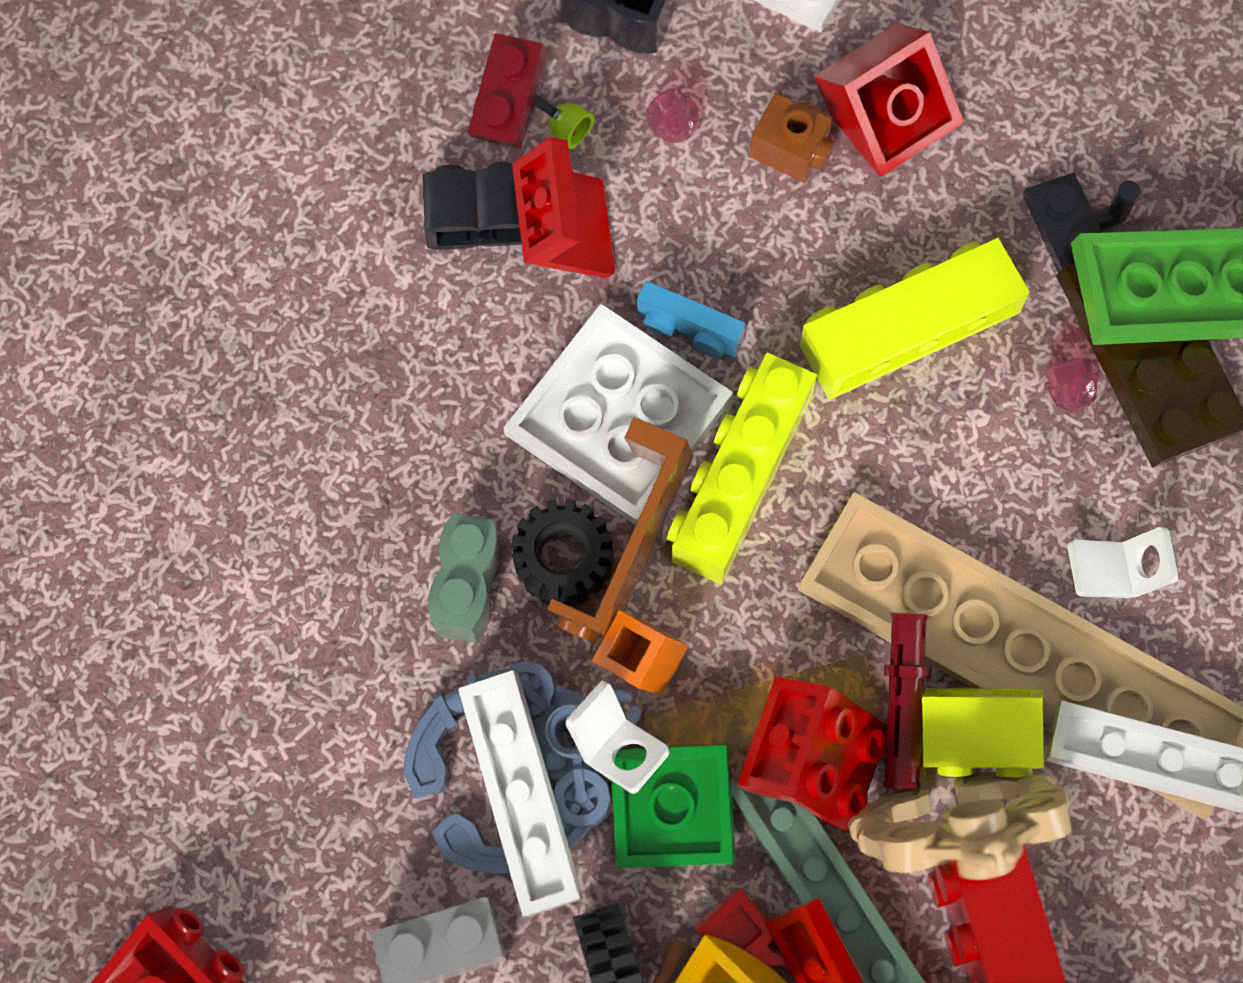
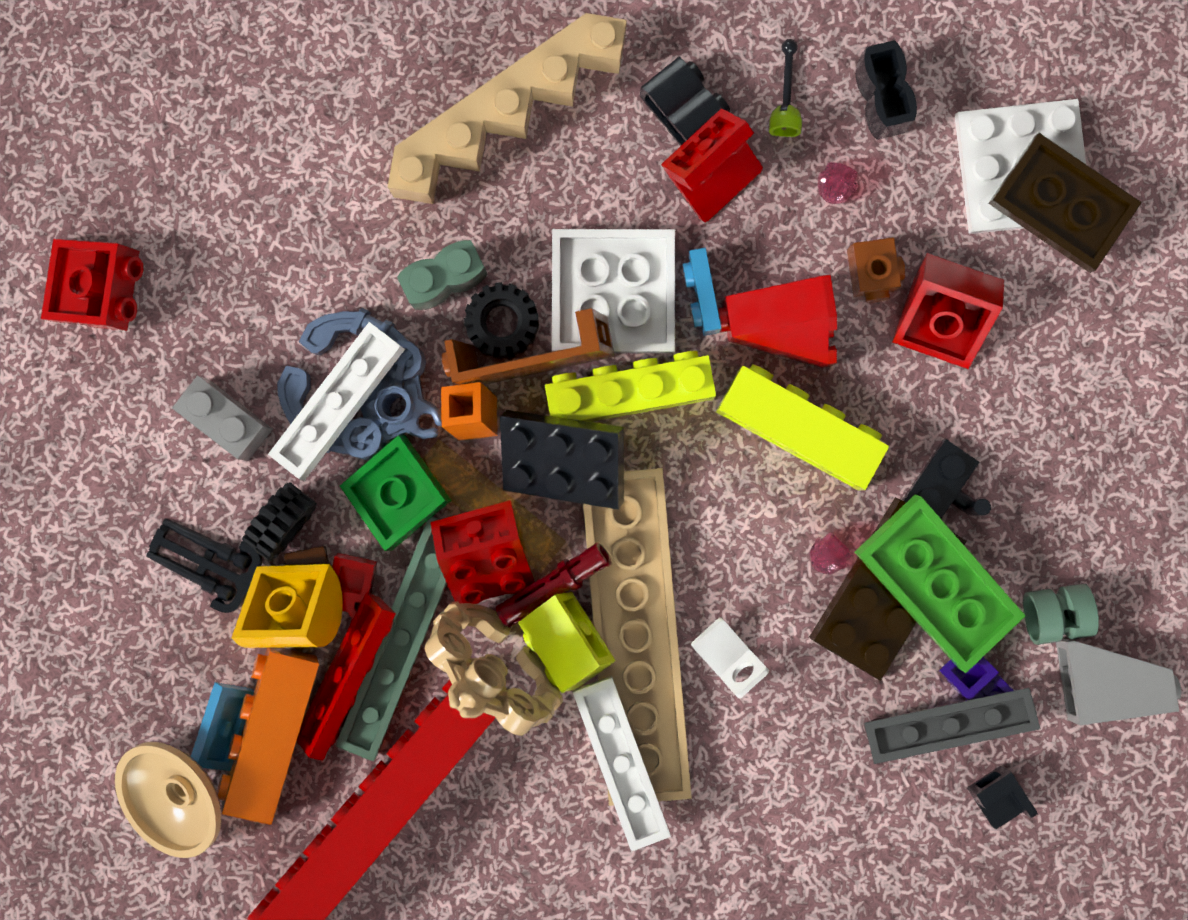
camera: 50 degrees right, 15 degrees up
(333, 385) = (505, 104): none -> tan brick
(507, 90) = (778, 65): dark red plate -> none
(602, 730) = (405, 423): white bracket -> none
(769, 584) = (562, 459): none -> black plate
(786, 252) = (785, 320): none -> red slope

